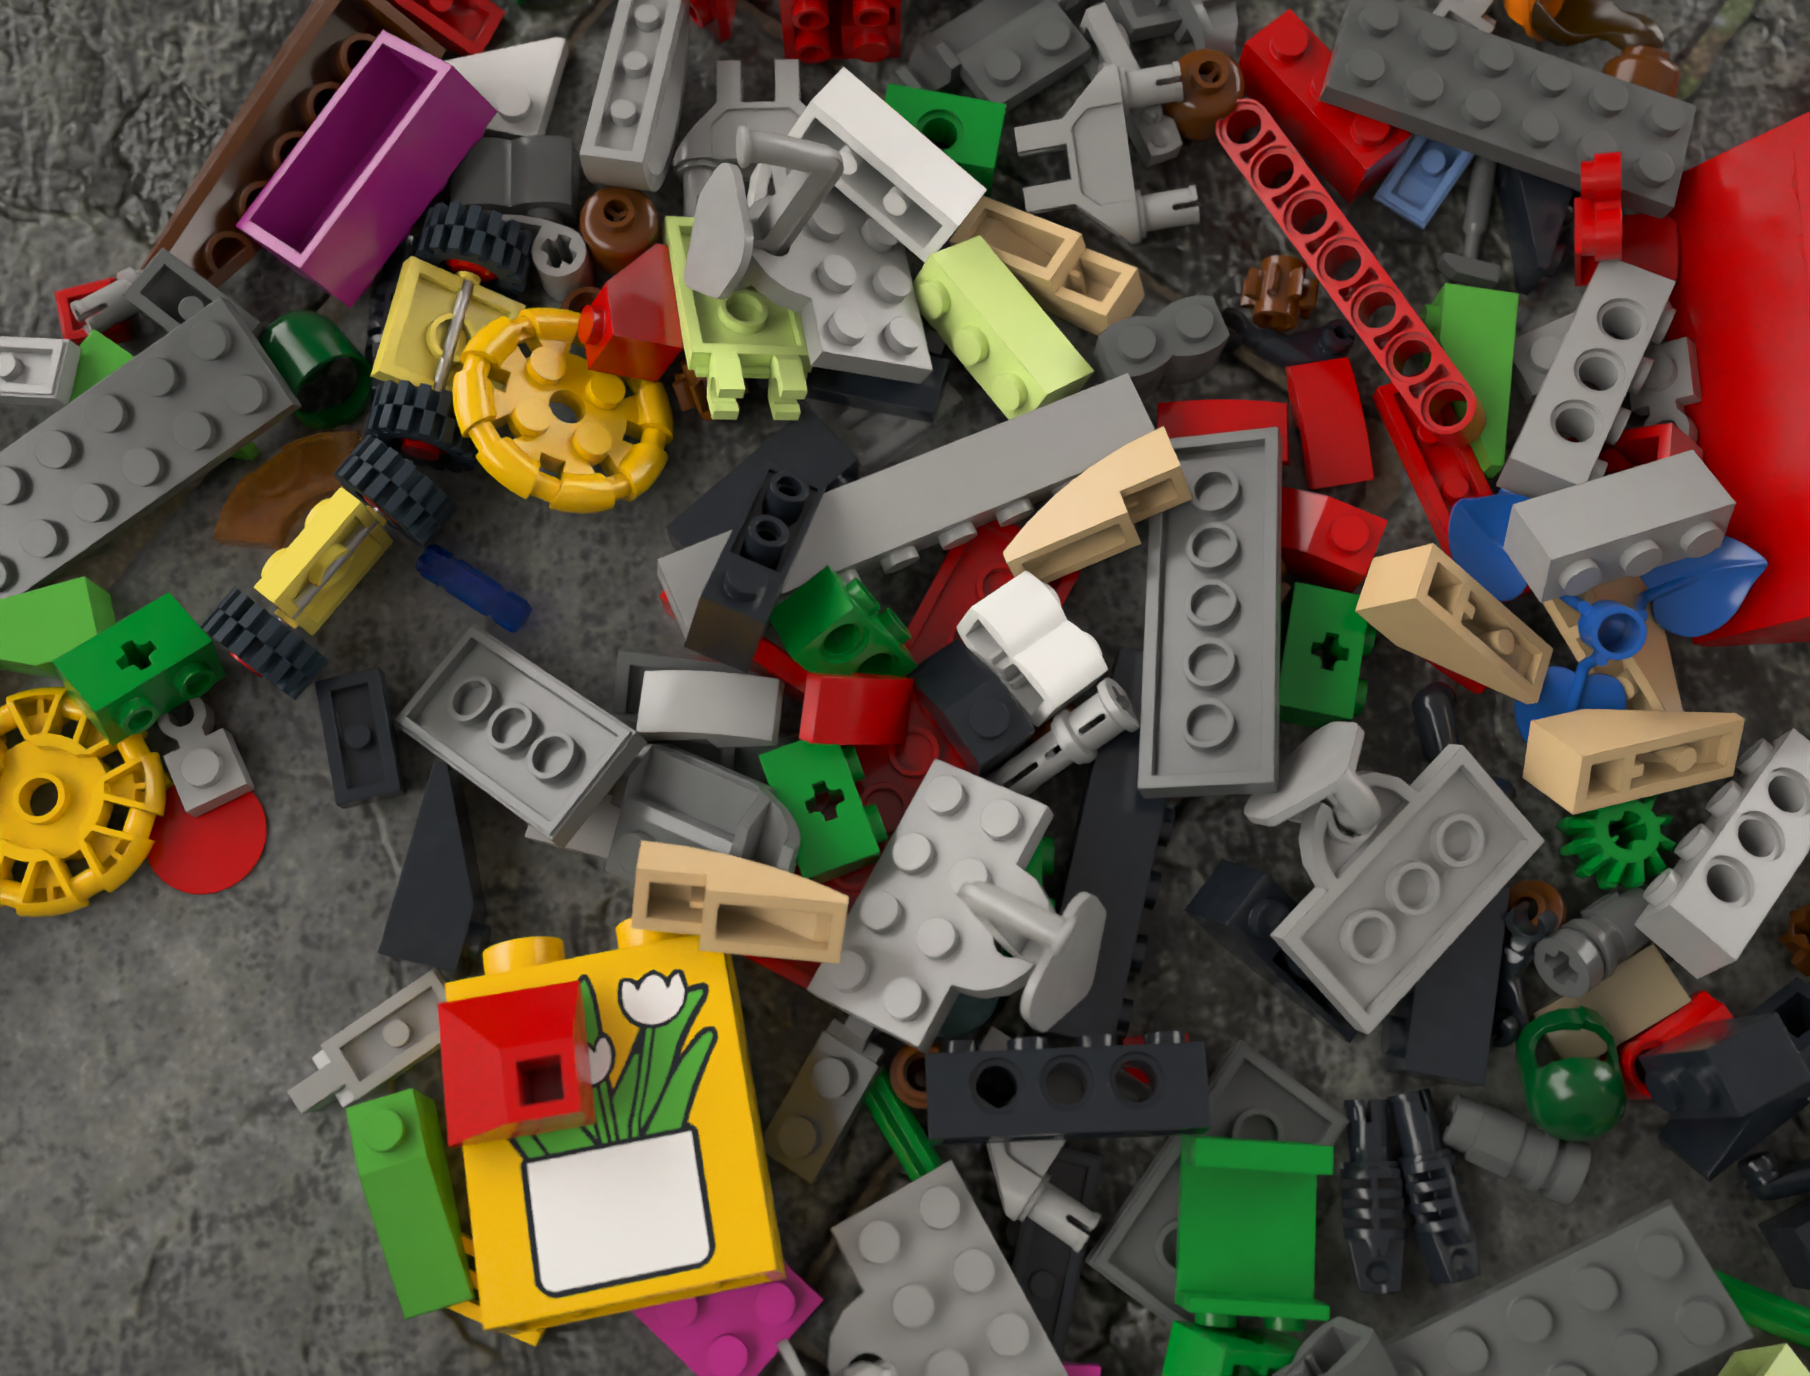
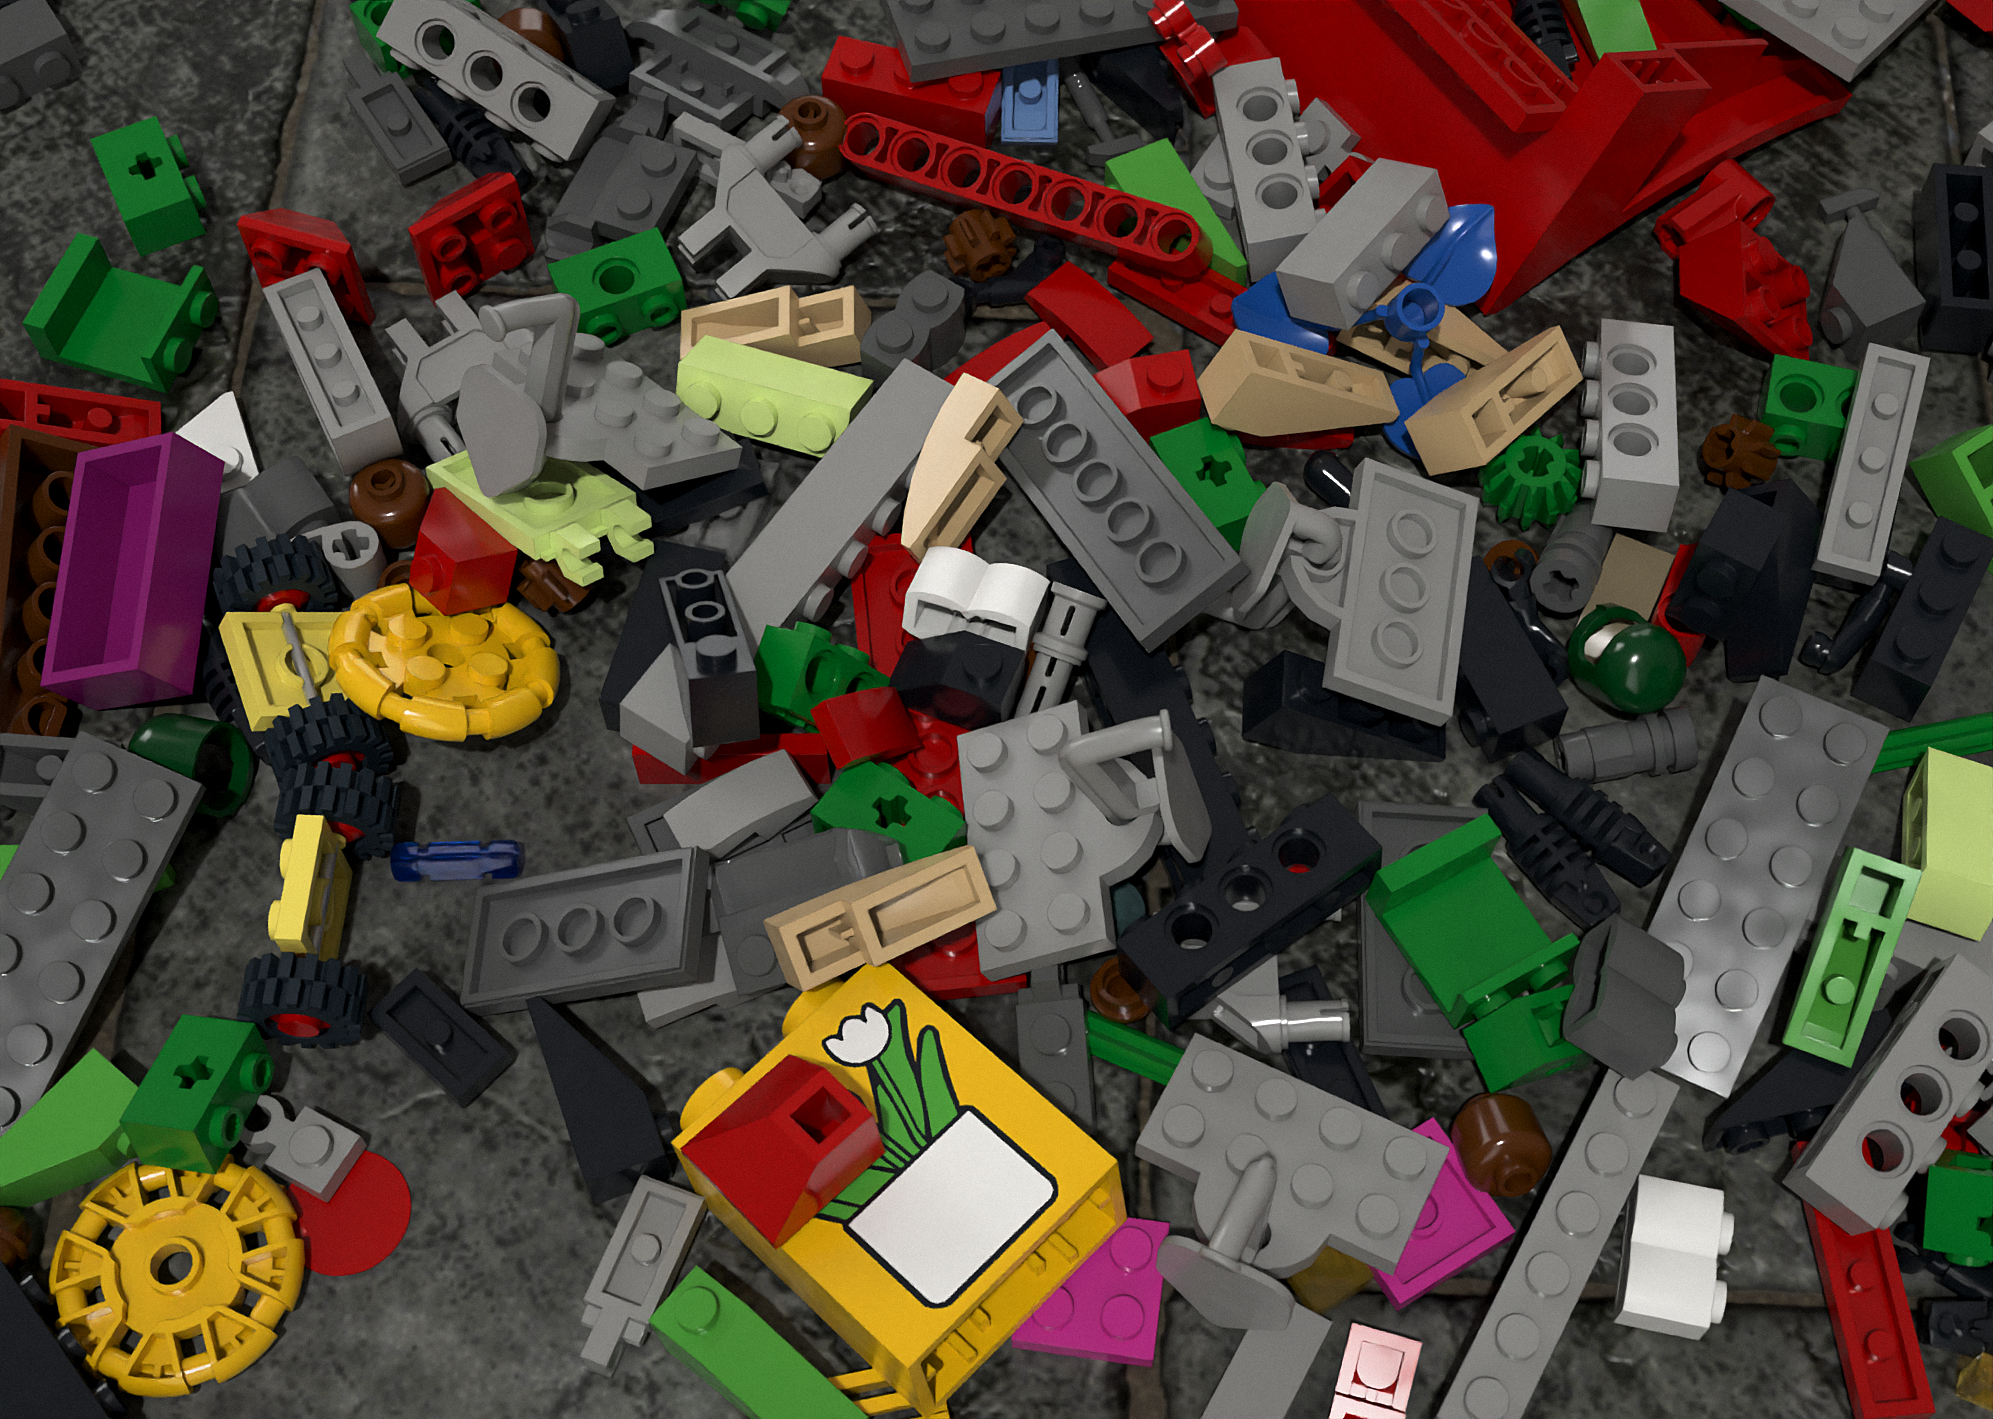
camera: 30 degrees left, 15 degrees down
(282, 490) = (222, 885): clear orange tile -> none
(889, 165) = (618, 319): white brick -> none

